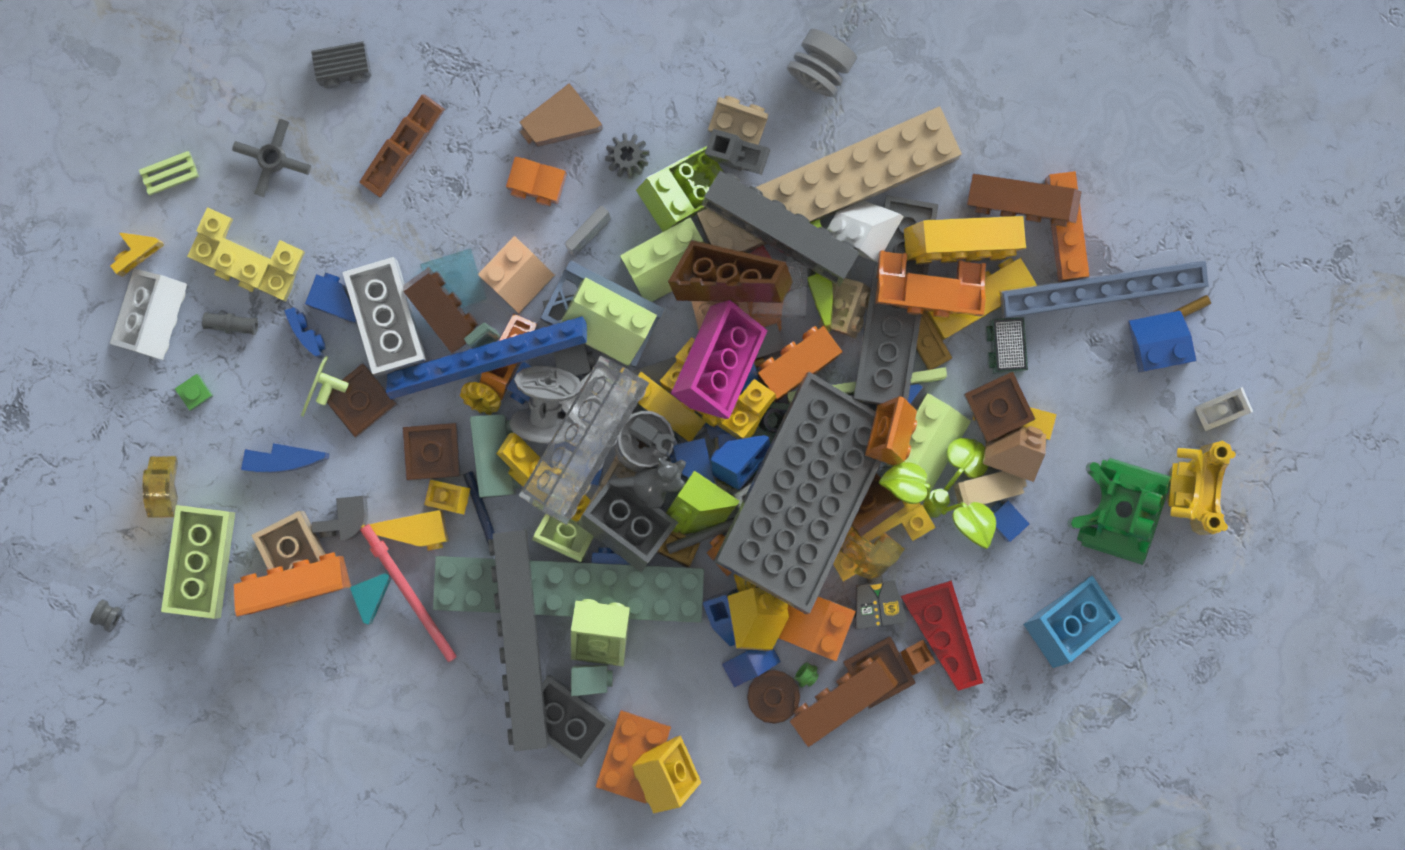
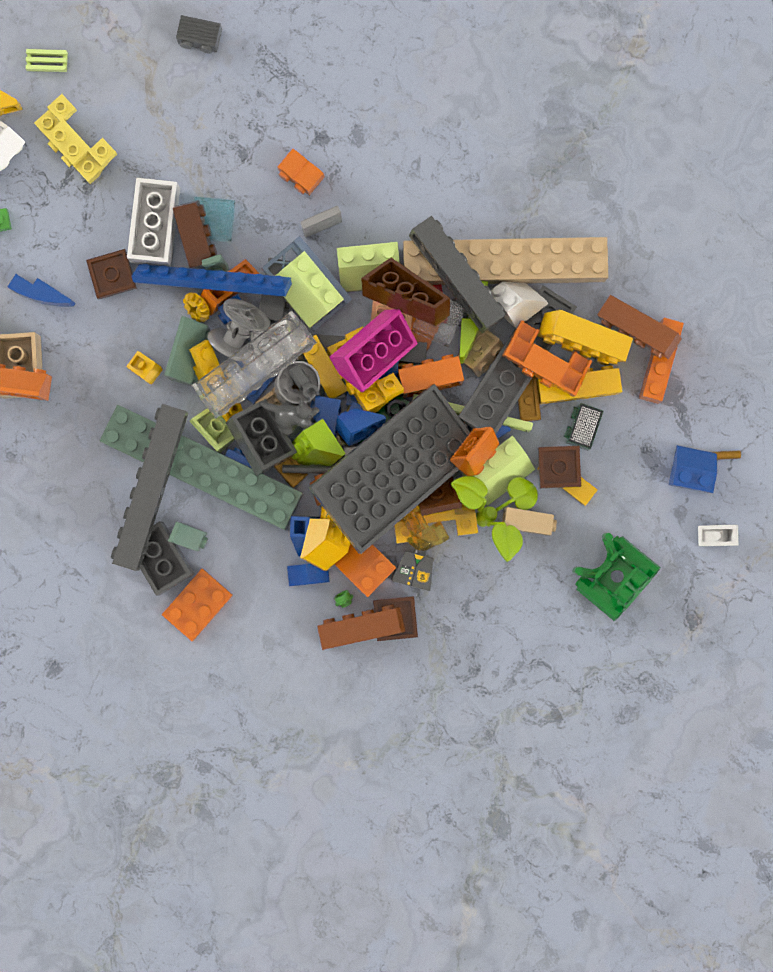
camera: 20 degrees right, 0 degrees up
(230, 323) = (44, 182): dark grey pin -> none
(261, 154) = (128, 84): dark grey bar -> none
(310, 340) = (94, 215): blue slope -> none
(328, 382) = (93, 252): yellowish green shield -> none
(331, 297) = (121, 192): blue slope -> none
(351, 516) = (70, 354): dark grey brick -> none
(369, 596) = (60, 413): teal slope -> none
(379, 550) = (80, 383): coral bar -> none
(402, 145) = (217, 109): dark orange slope -> none
(419, 530) = (115, 382): yellow slope -> none
(431, 451) = (146, 331): reddish brown plate -> none
(479, 506) = (164, 383): dark blue bar -> none
(516, 274) = (258, 232): light nougat slope -> none
(559, 119) = (335, 136): medium nougat slope -> none
(599, 632) = (209, 506): yellowish green slope -> none
(617, 156) = (366, 186): dark grey gear -> none
(667, 775) = (214, 627): yellow slope -> none
(679, 189) = (396, 218): lime slope -> none
(735, 153) = (448, 211): dark grey brick -> none
(739, 119) = (460, 190): tan bracket -> none
(773, 696) = (313, 604): reddish brown tile -> none
(824, 58) = (536, 172): light grey wheel -> none
(917, 657) = (426, 619): dark orange plate -> none
(943, 626) = (454, 607): red wing -> none
(1008, 520) = (531, 549): blue brick -> none
(1017, 452) = (558, 504): medium nougat slope -> none
(1072, 622) = (547, 641): dark azure slope -> none
(1103, 289) = (668, 415): sand blue tile -> none
(1197, 486) = (677, 581): yellow piece -> none

